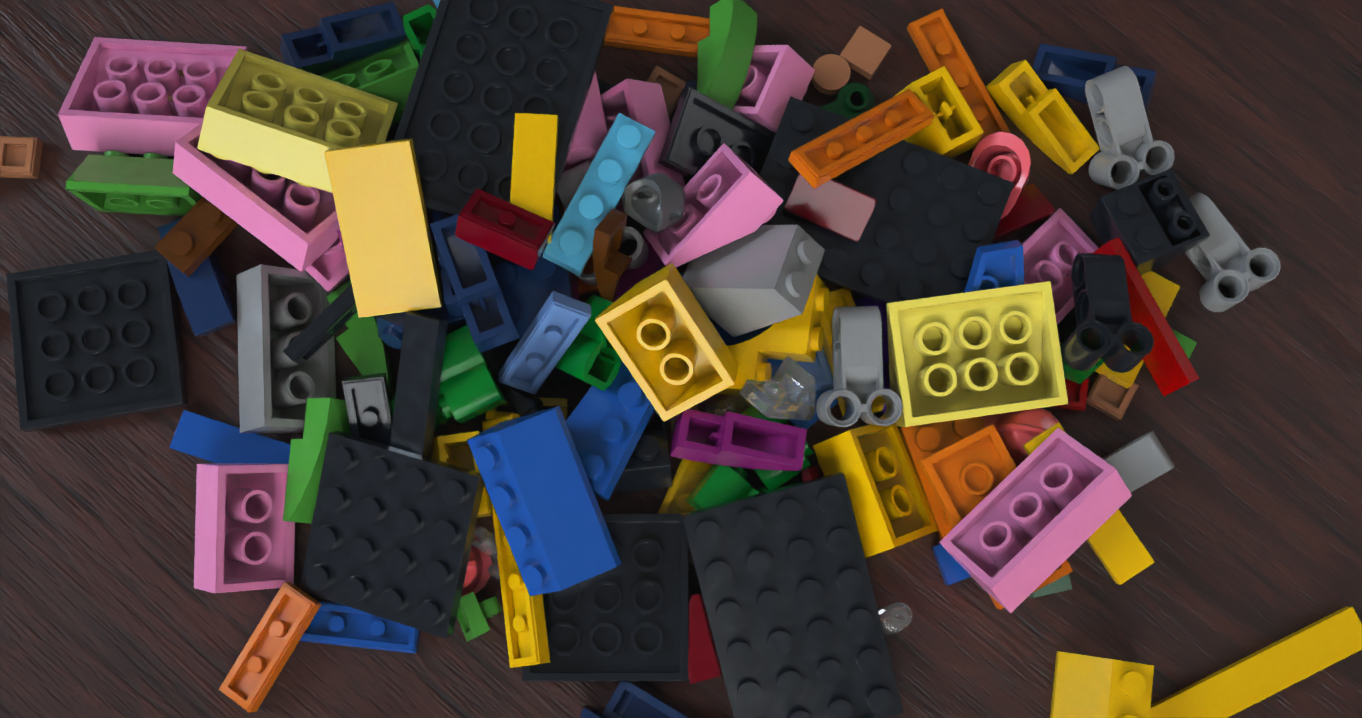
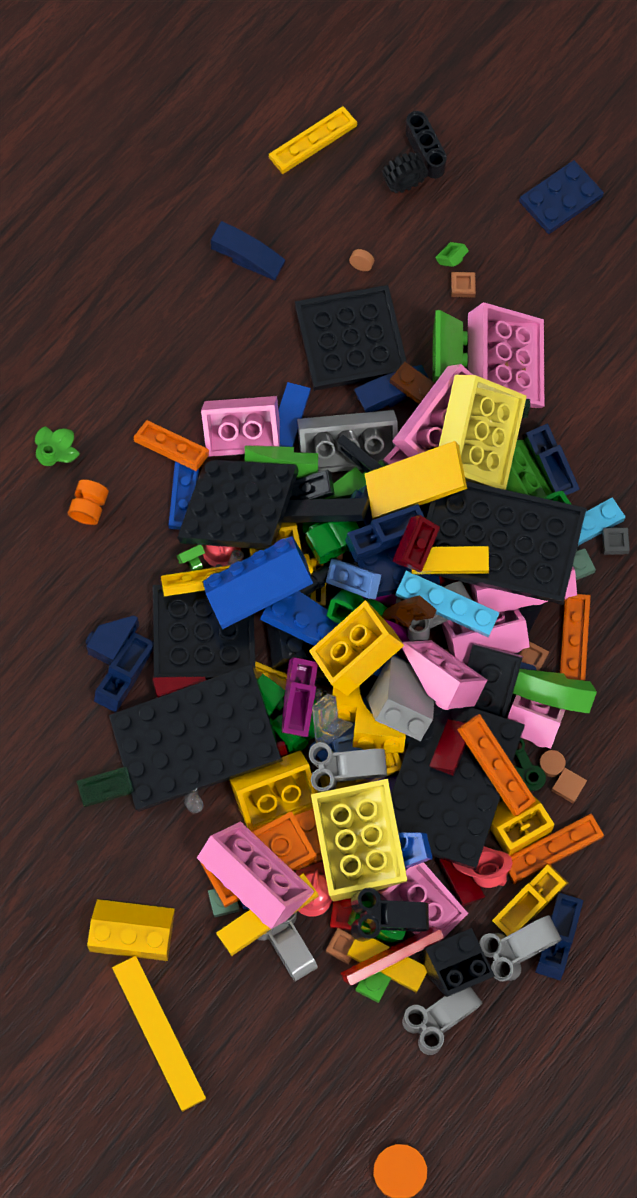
camera: 90 degrees right, 10 degrees down
(657, 204) = (443, 637): dark grey piece -> none

